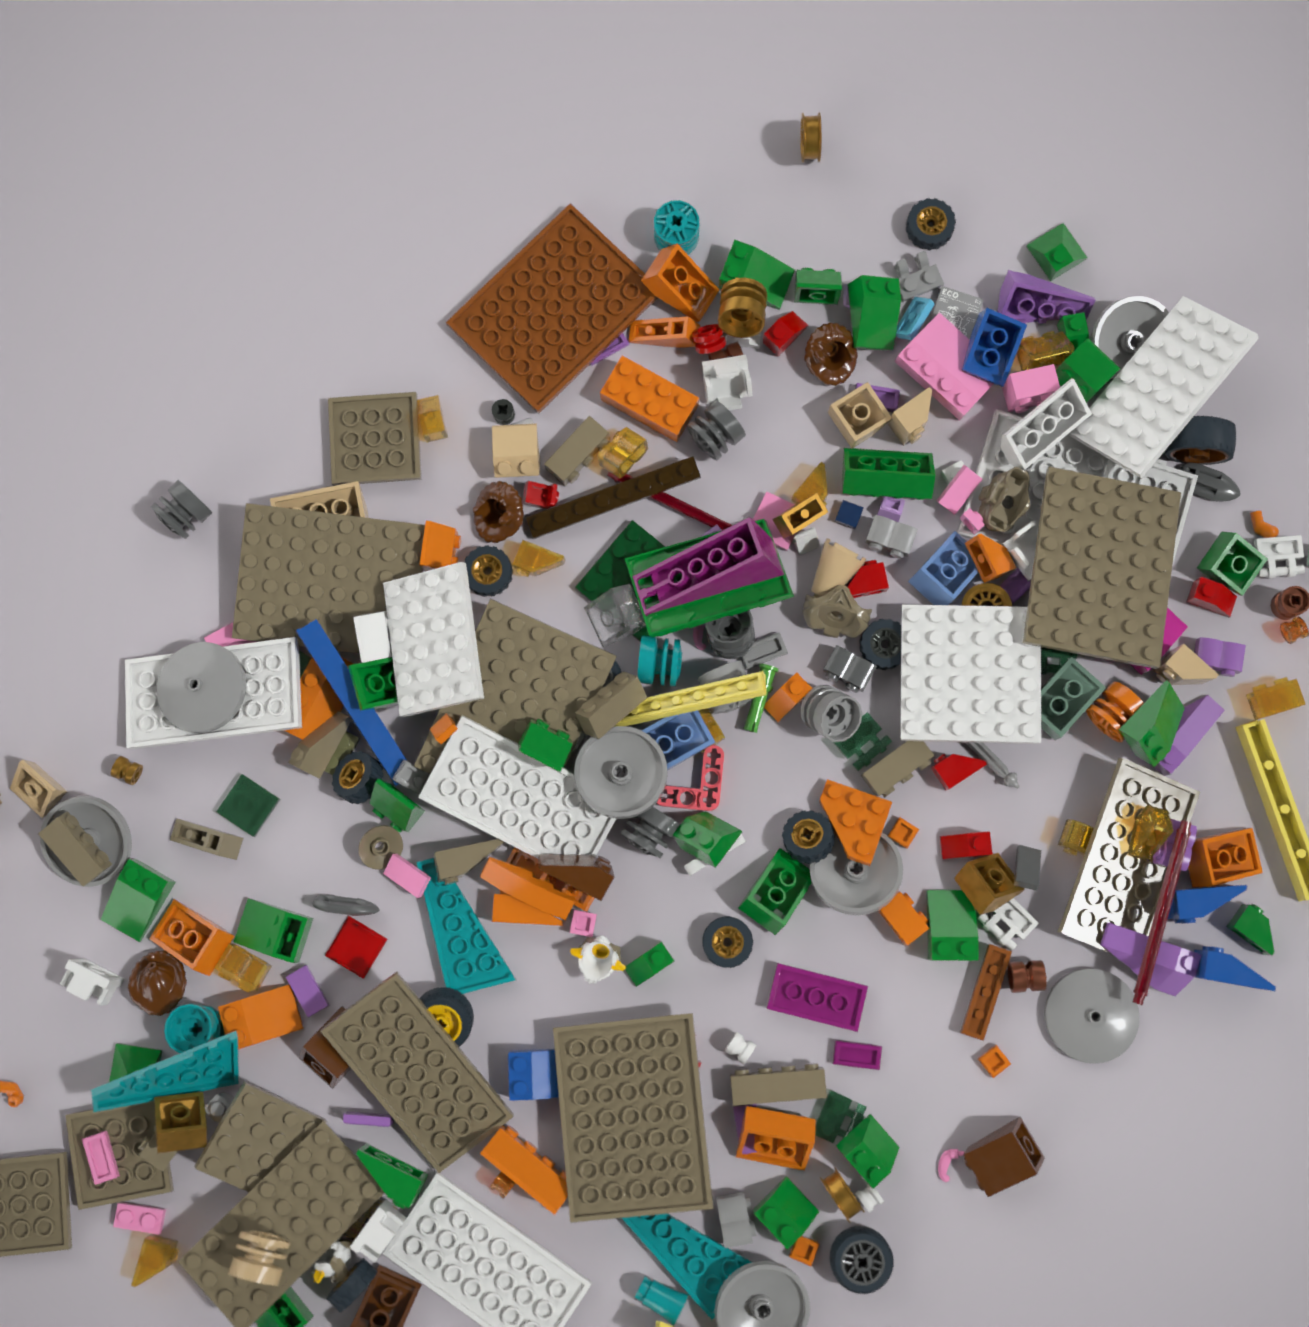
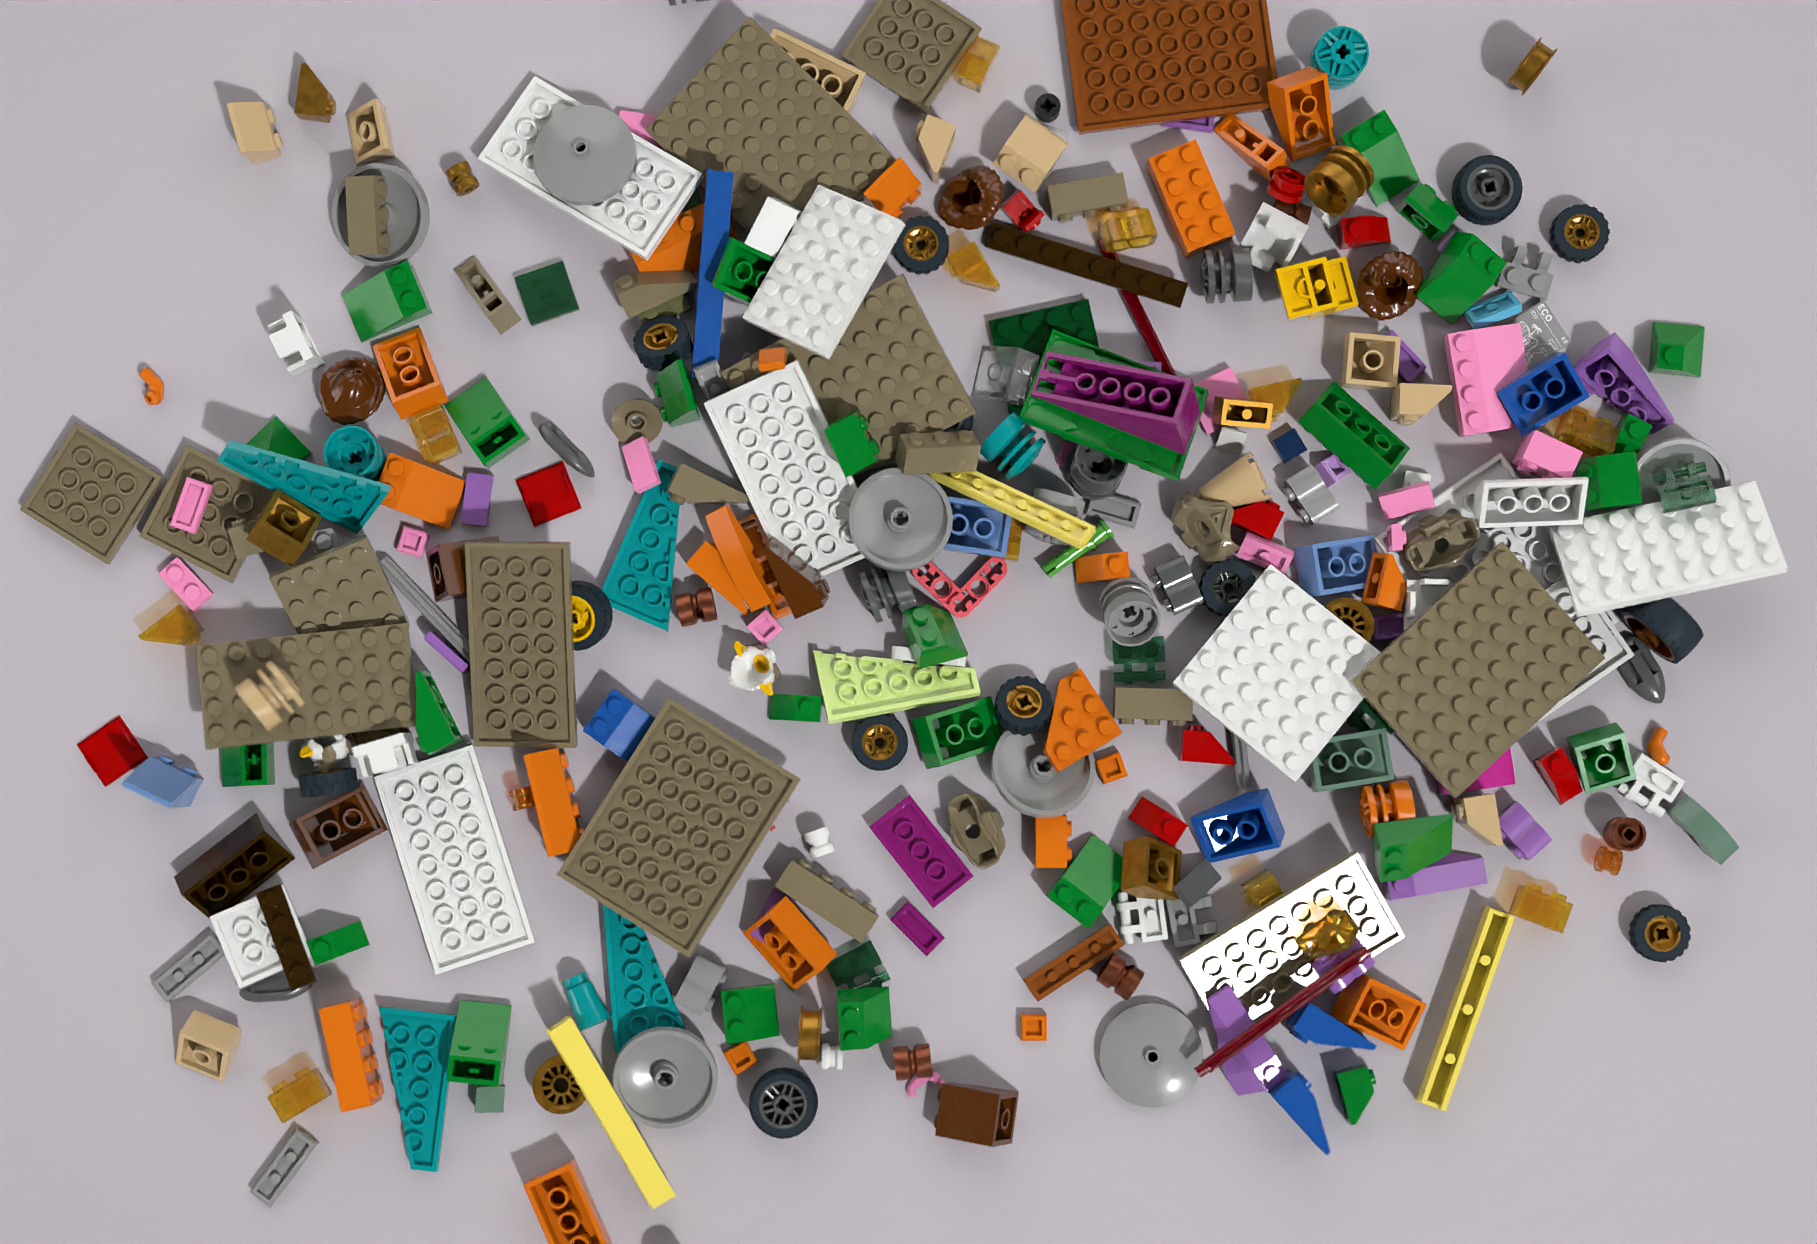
camera: 30 degrees right, 5 degrees up
(283, 1058) = (412, 542): none -> bright pink tile
(327, 1097) = (426, 607): none -> light grey axle
(443, 493) = (934, 144): none -> tan slope
(523, 946) = (696, 607): none -> copper wheel
(695, 902) = (878, 686): none -> yellowish green wing
(783, 393) = (1316, 288): none -> yellow bracket
(846, 241) = (1503, 188): none -> wheel
(861, 957) = (990, 844): none -> dark tan piece
(891, 600) = (1264, 552): none -> bright pink plate
(929, 1155) = (912, 1061): none -> copper wheel
(1025, 804) = (1239, 826): none -> blue slope
(1042, 904) = (1184, 923): none -> light grey plate
(1146, 338) = (1687, 493): none -> clear green plate

